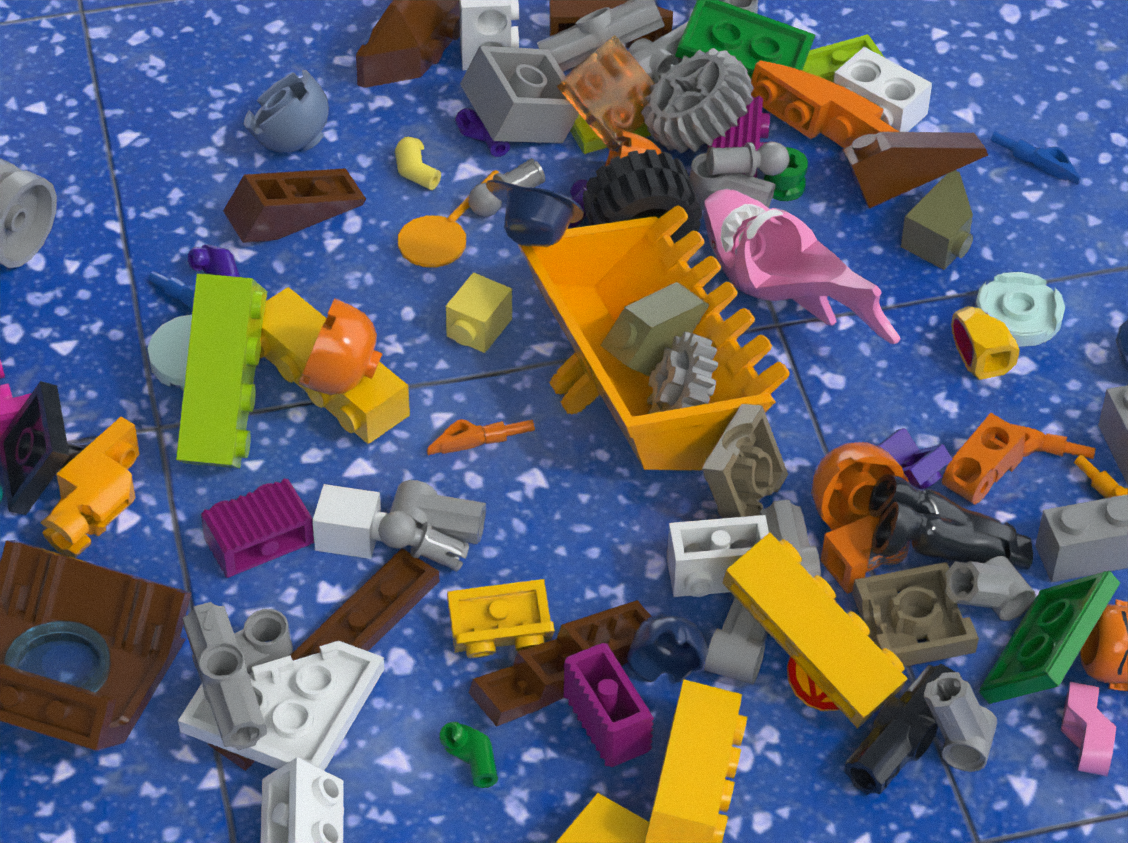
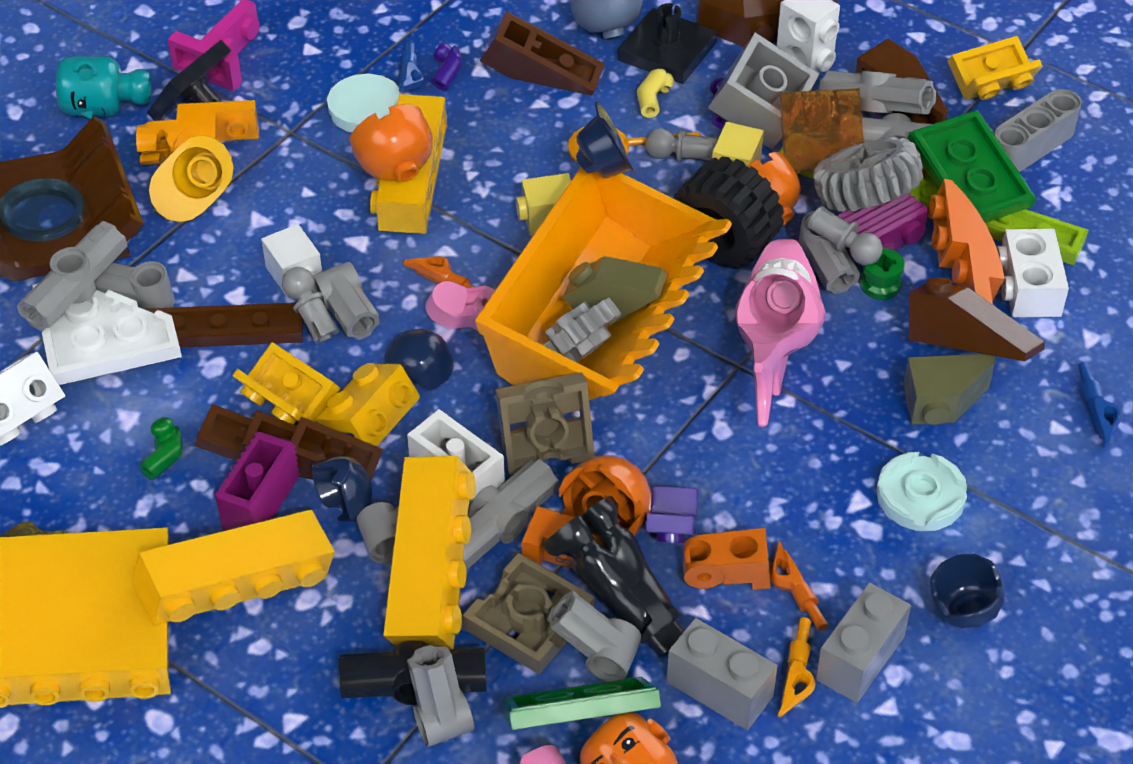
camera: 50 degrees right, 0 degrees up
(164, 525) = (191, 178): none -> yellow piece
(221, 370) = (329, 107): lime wedge -> none
(257, 527) = (239, 221): magenta brick -> none
(368, 116) = (667, 43): none -> black tile
(539, 441) = (457, 305): none -> bright pink piece
(558, 512) = (422, 356): none -> dark blue hair
(561, 159) = (739, 143): none -> light yellow brick
(575, 574) = (371, 402): none -> yellow bracket
(983, 343) = (850, 487): yellow rock -> none

